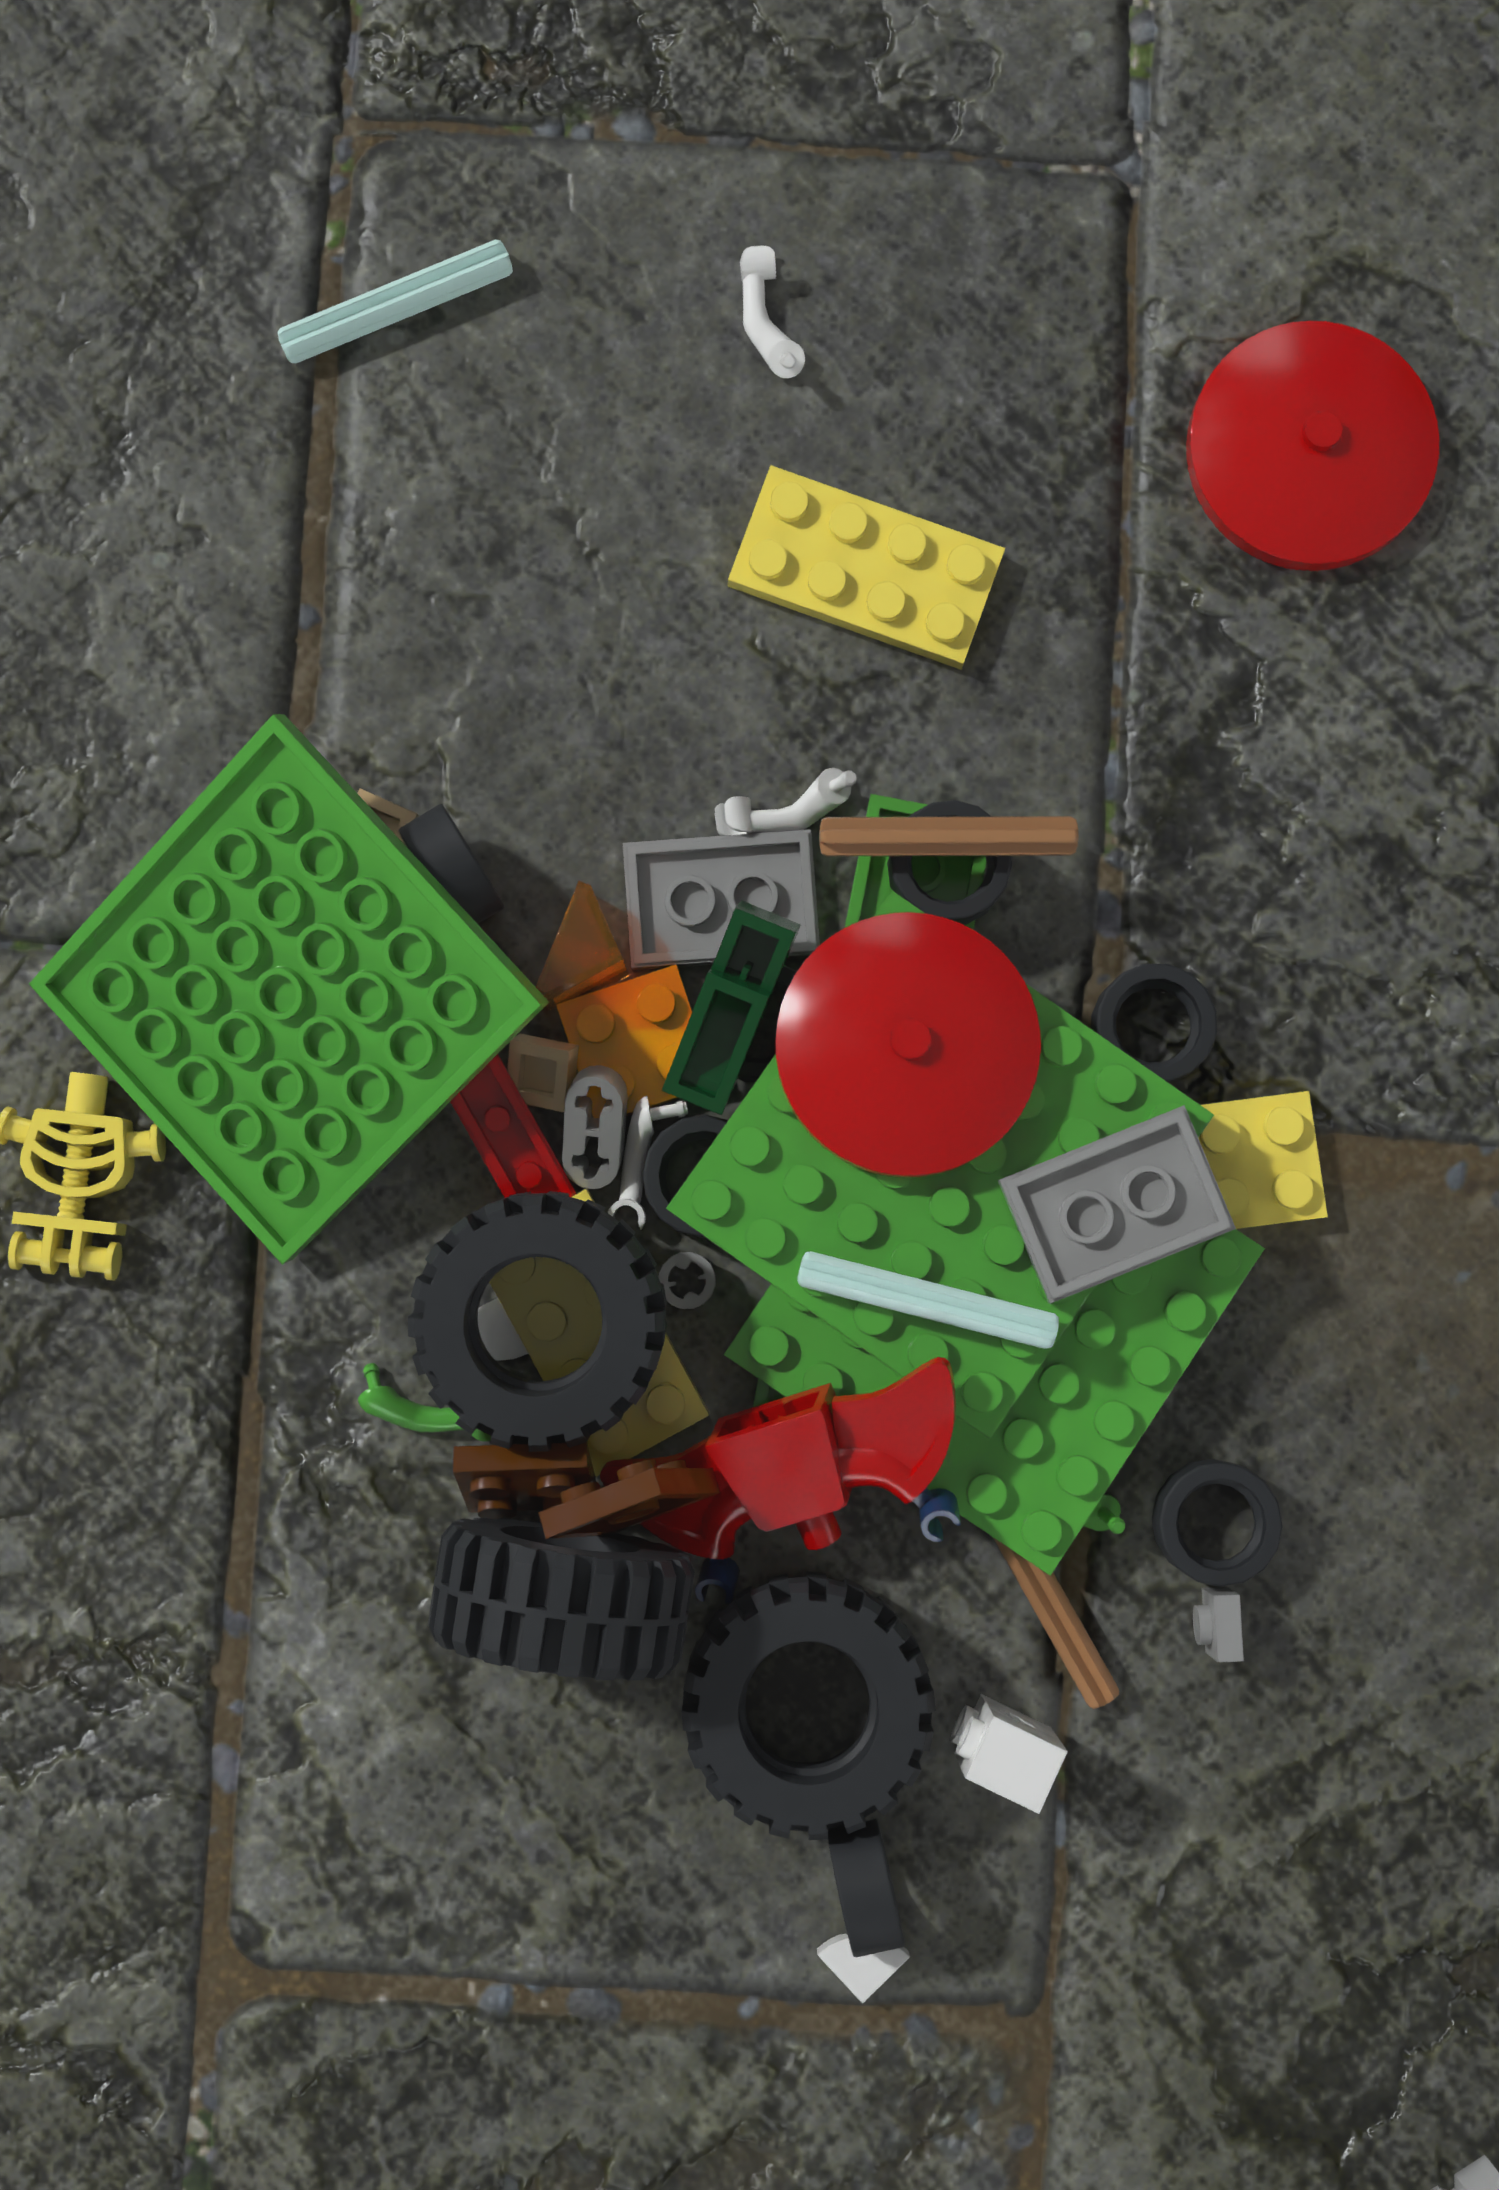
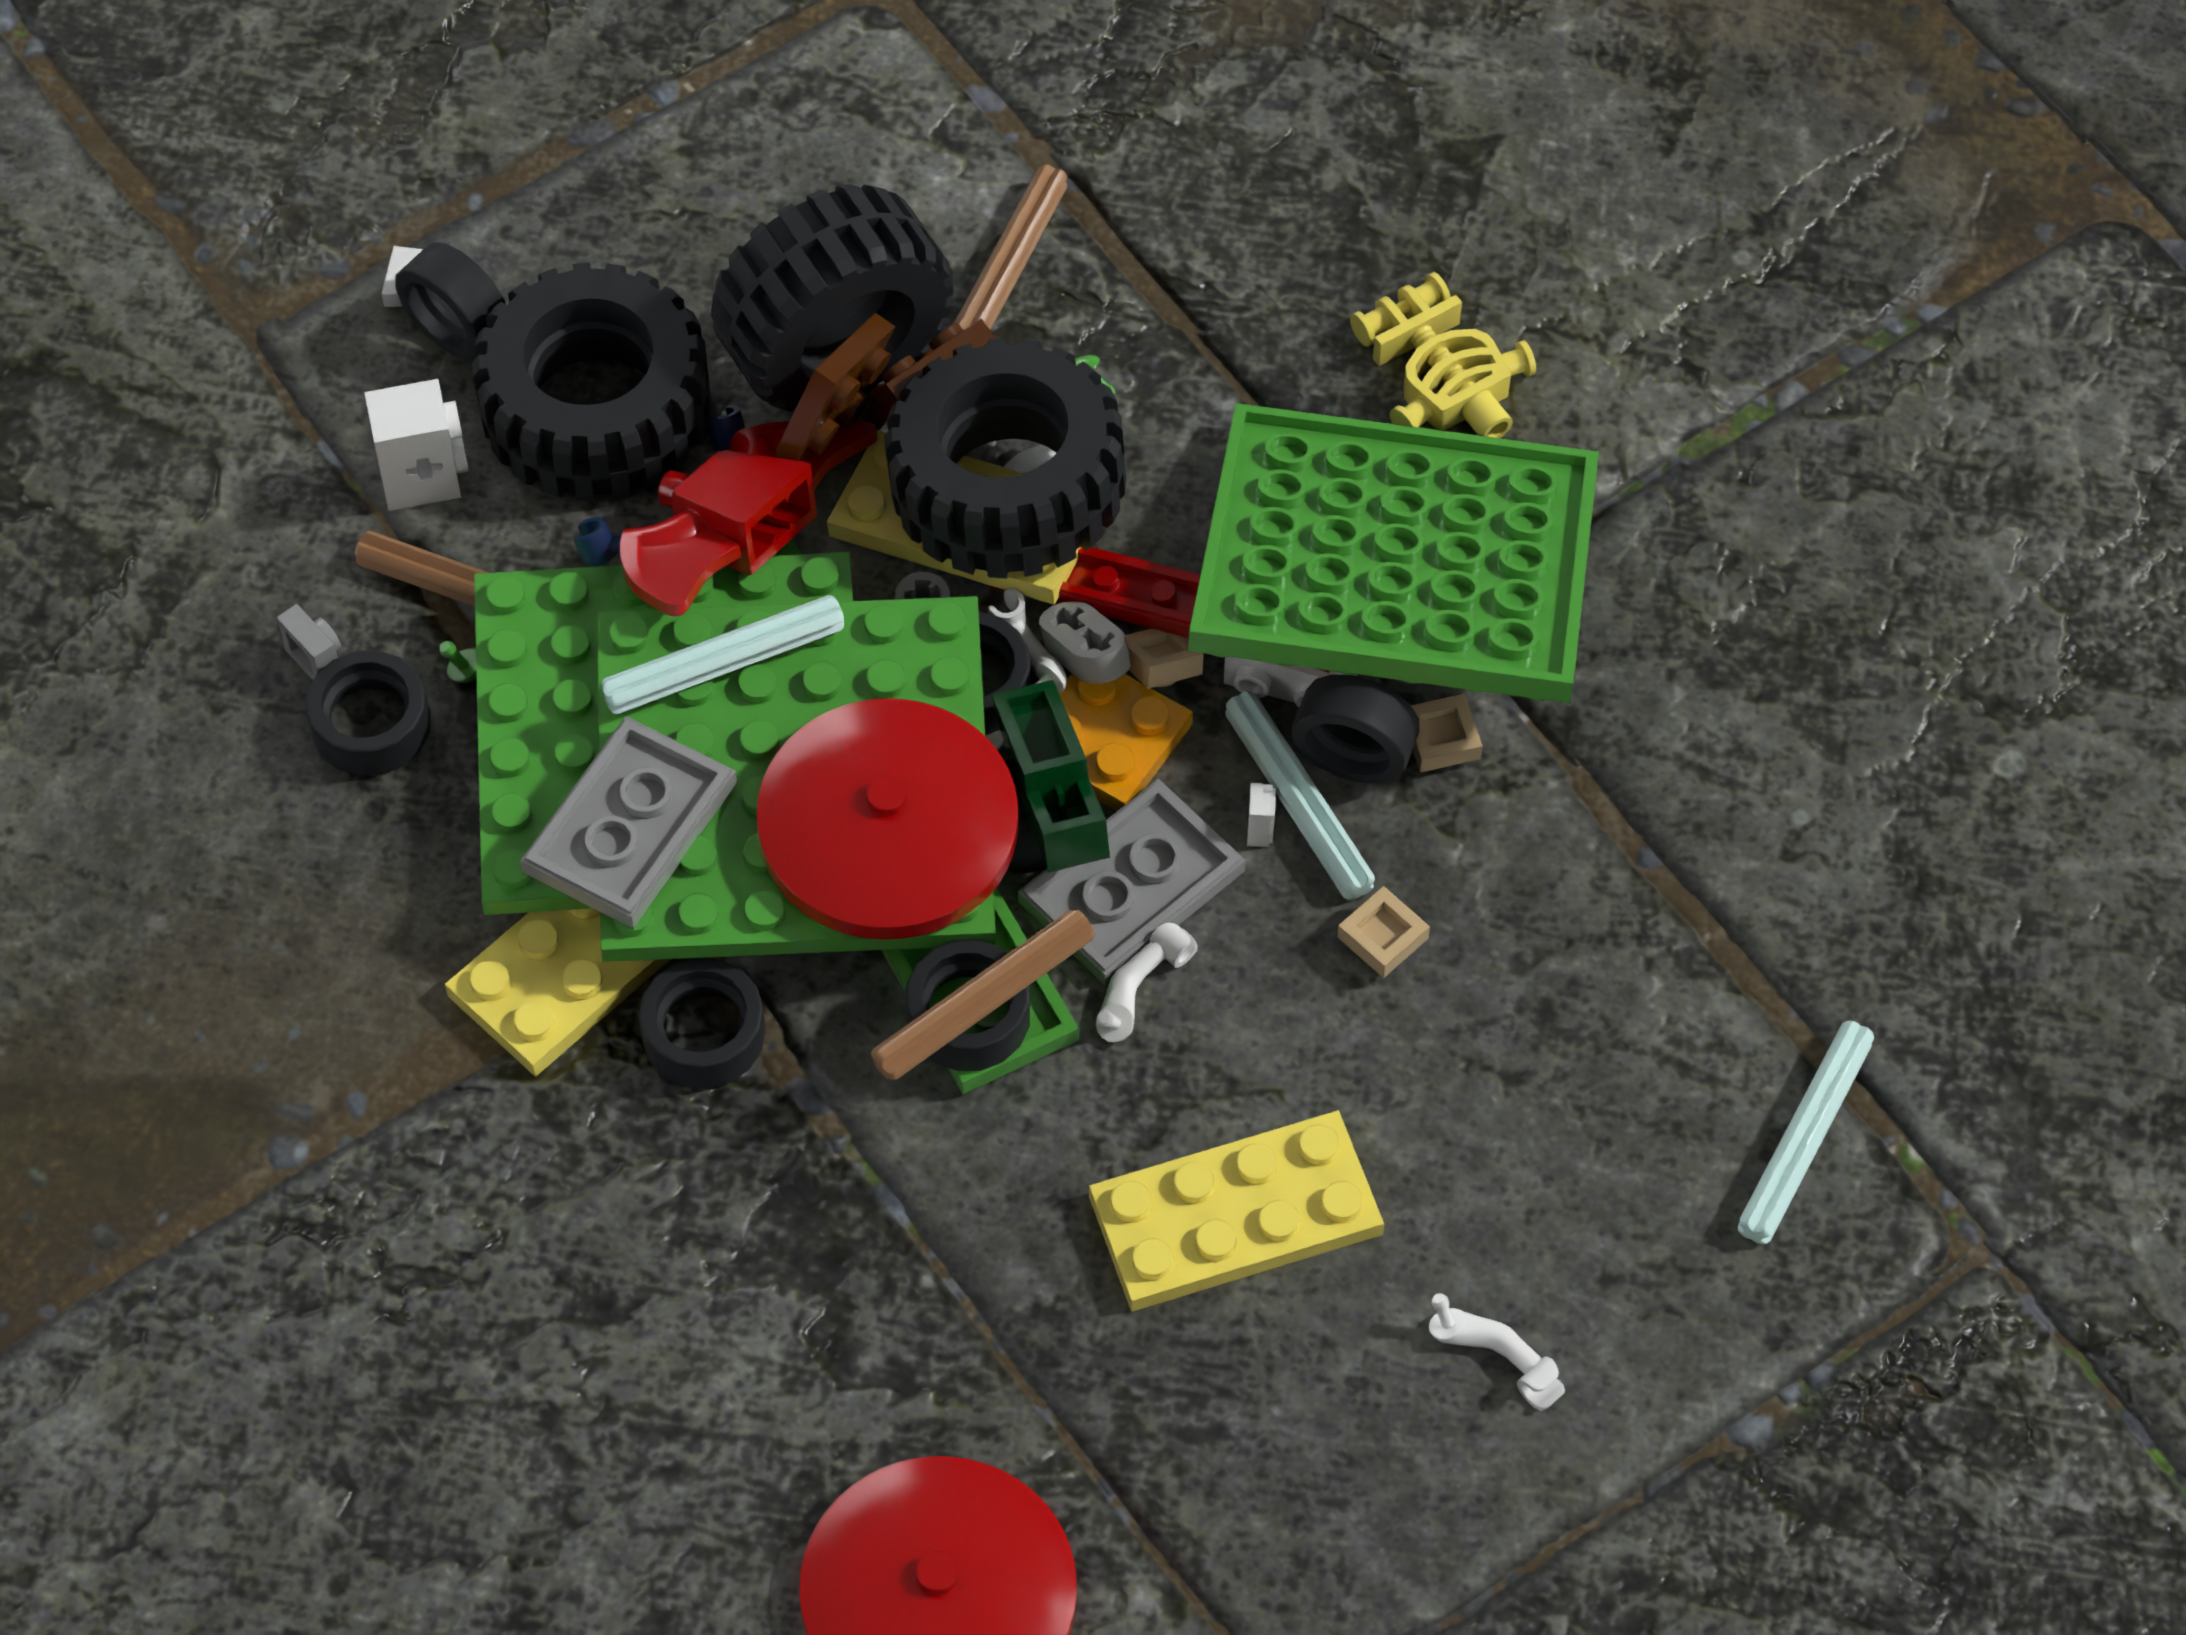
camera: 140 degrees right, 25 degrees down
(345, 1571) = (1014, 247): none -> medium nougat axle
(534, 857) = (1300, 796): none -> light aqua axle
(569, 697) = (1383, 932): none -> tan plate
(581, 865) = (1261, 815): none -> white tile
(582, 952) = (1200, 755): clear orange slope -> none

